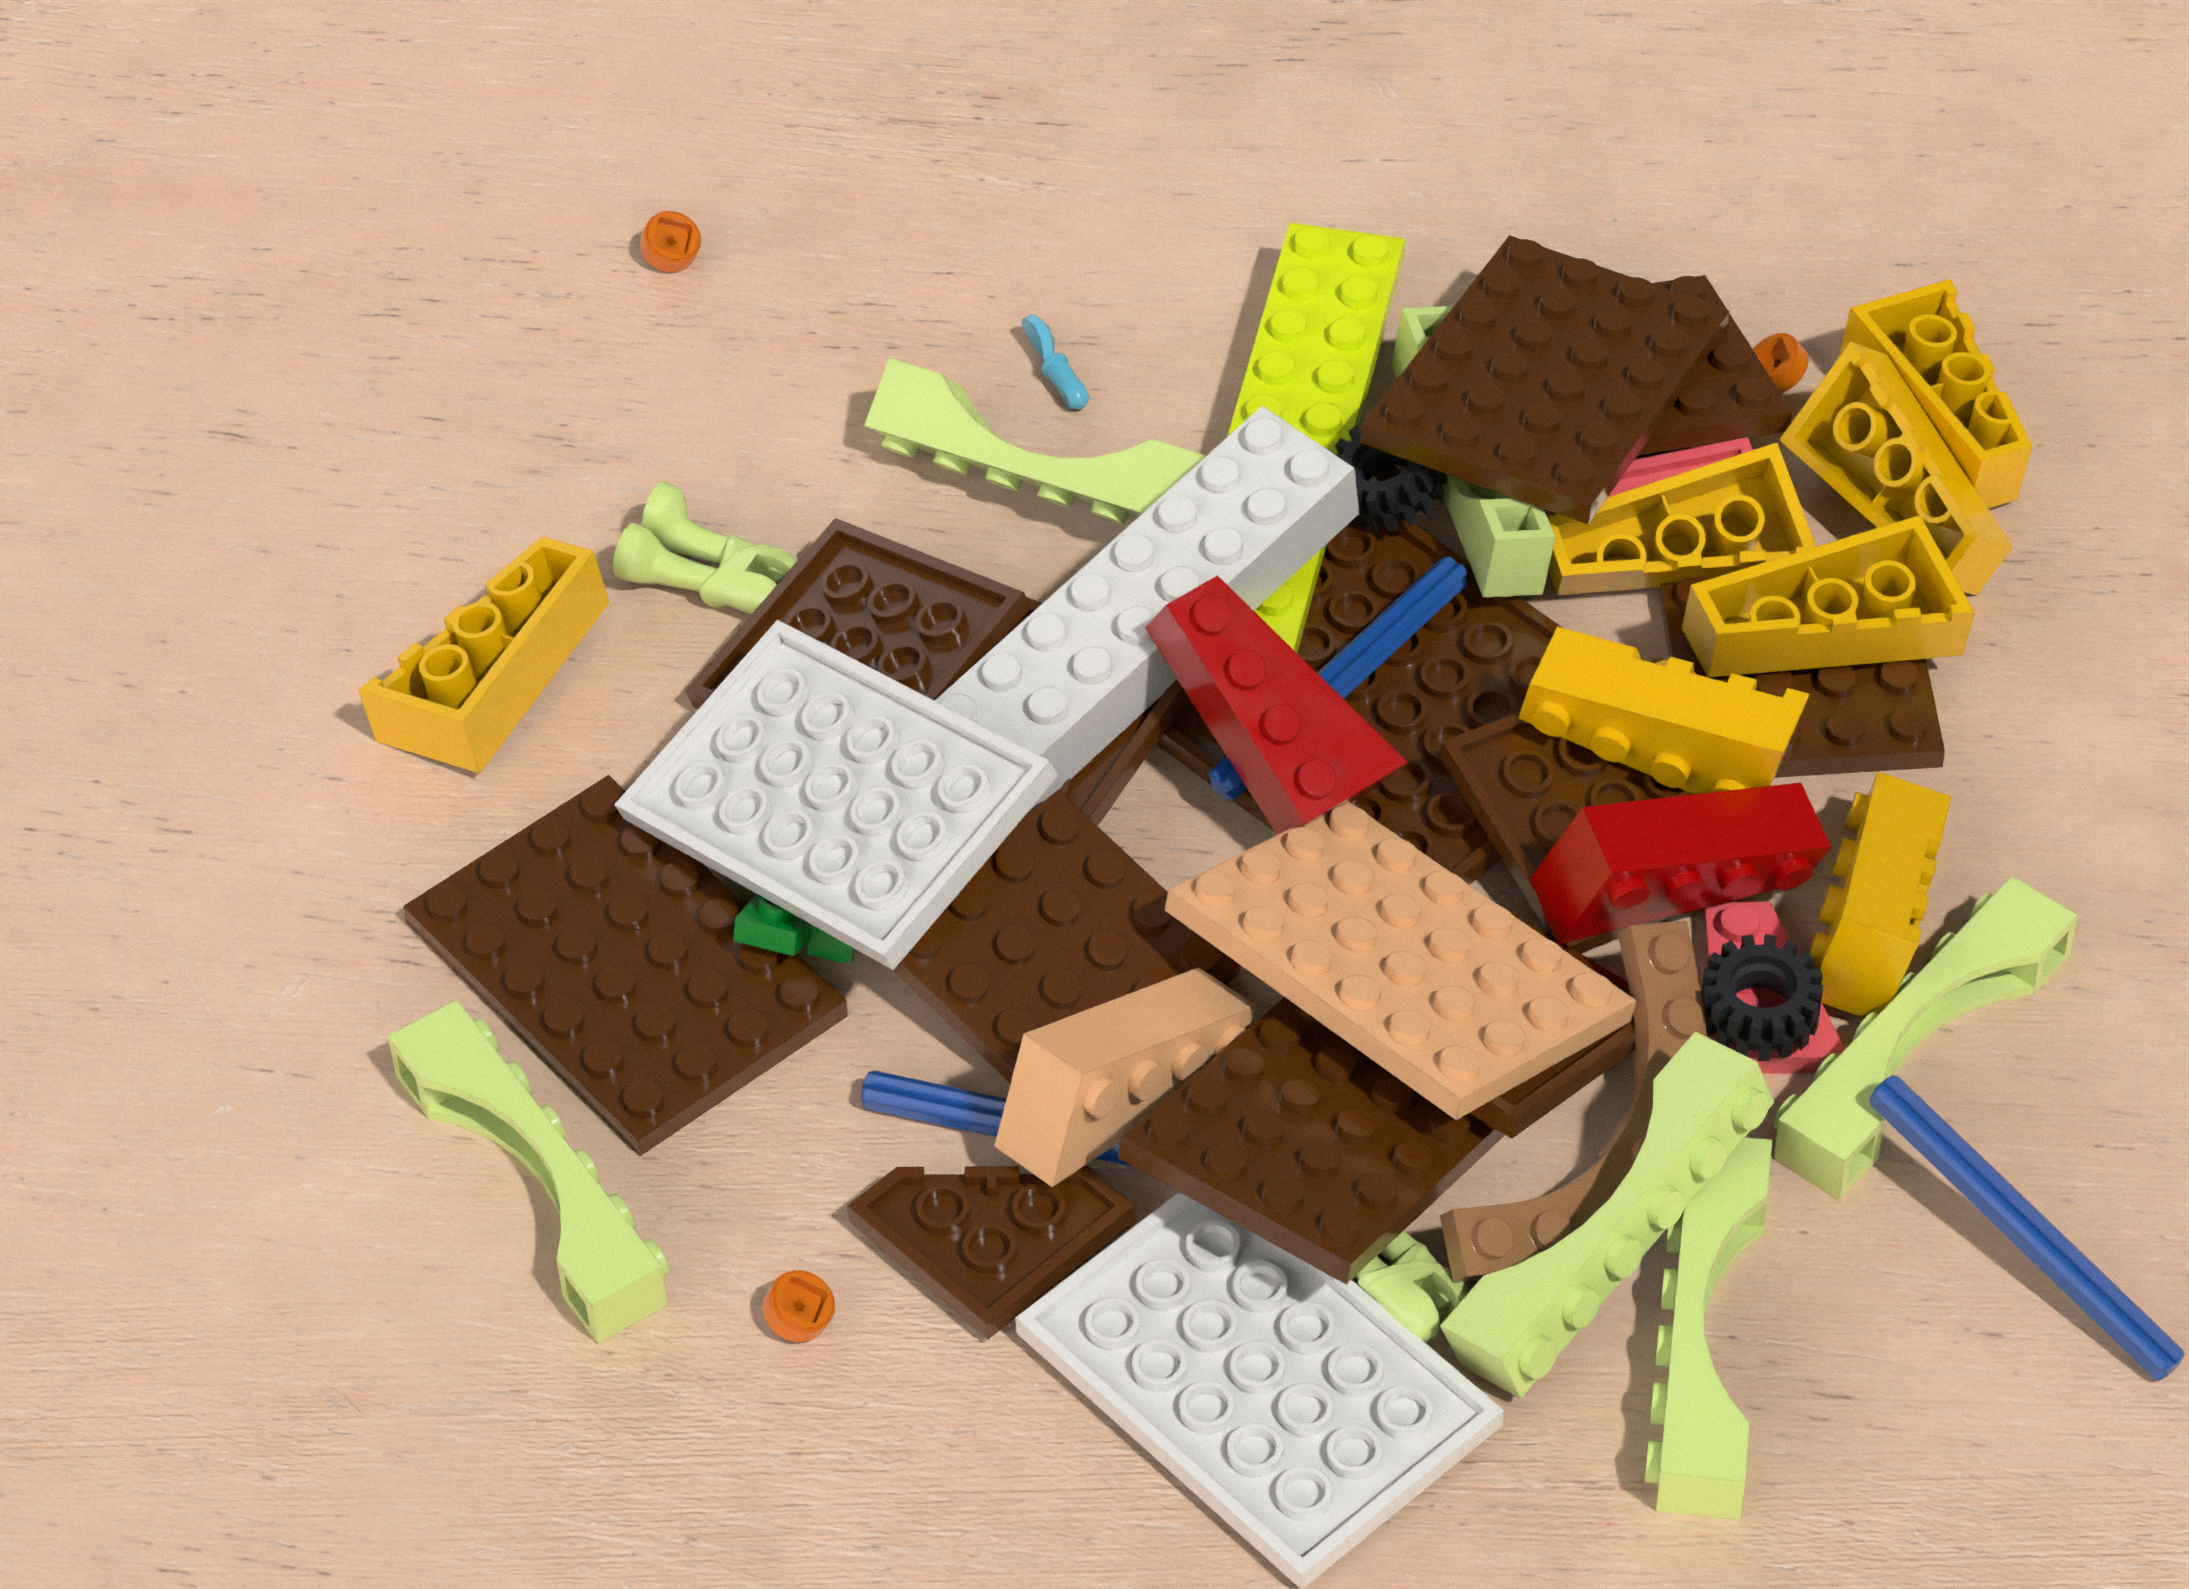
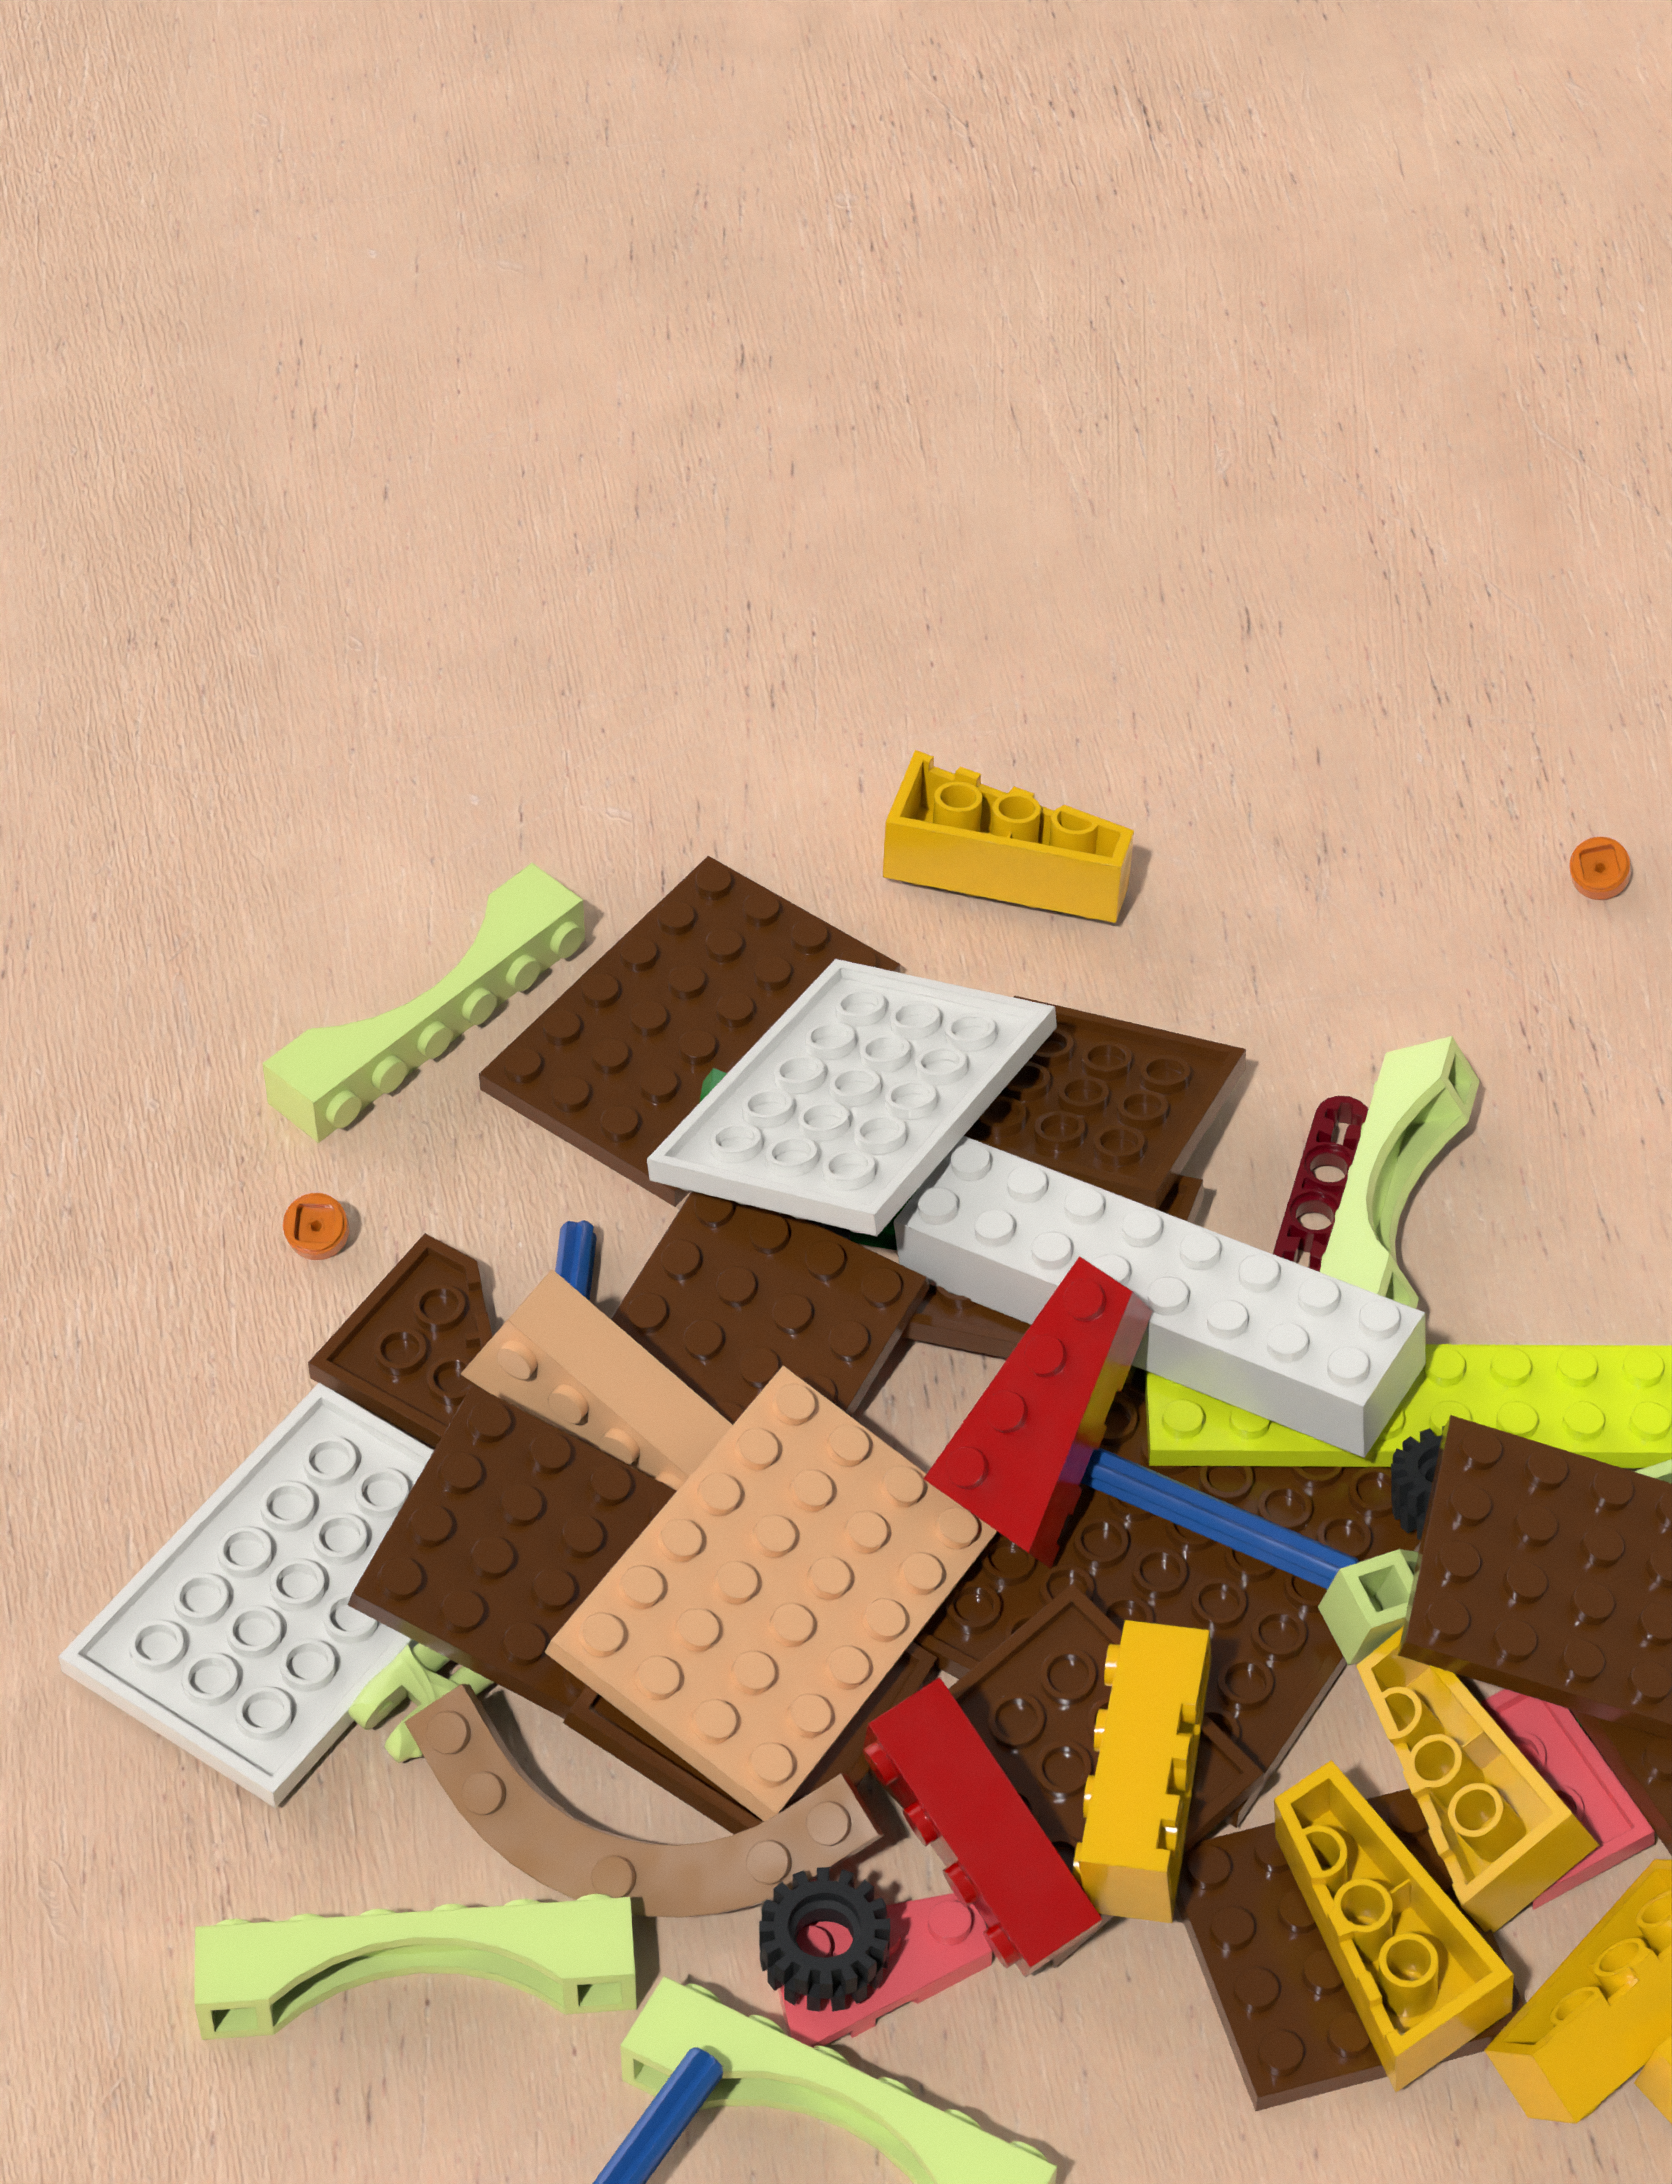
camera: 75 degrees right, 0 degrees up
(648, 556) = (1169, 927): yellowish green piece -> none
(992, 528) = (1314, 1194): none -> dark red beam
(1055, 365) = (1552, 1203): medium azure piece -> none
(1530, 1312) = (612, 1880): yellowish green arch -> none
(1880, 893) = (1009, 2038): yellow wedge -> none

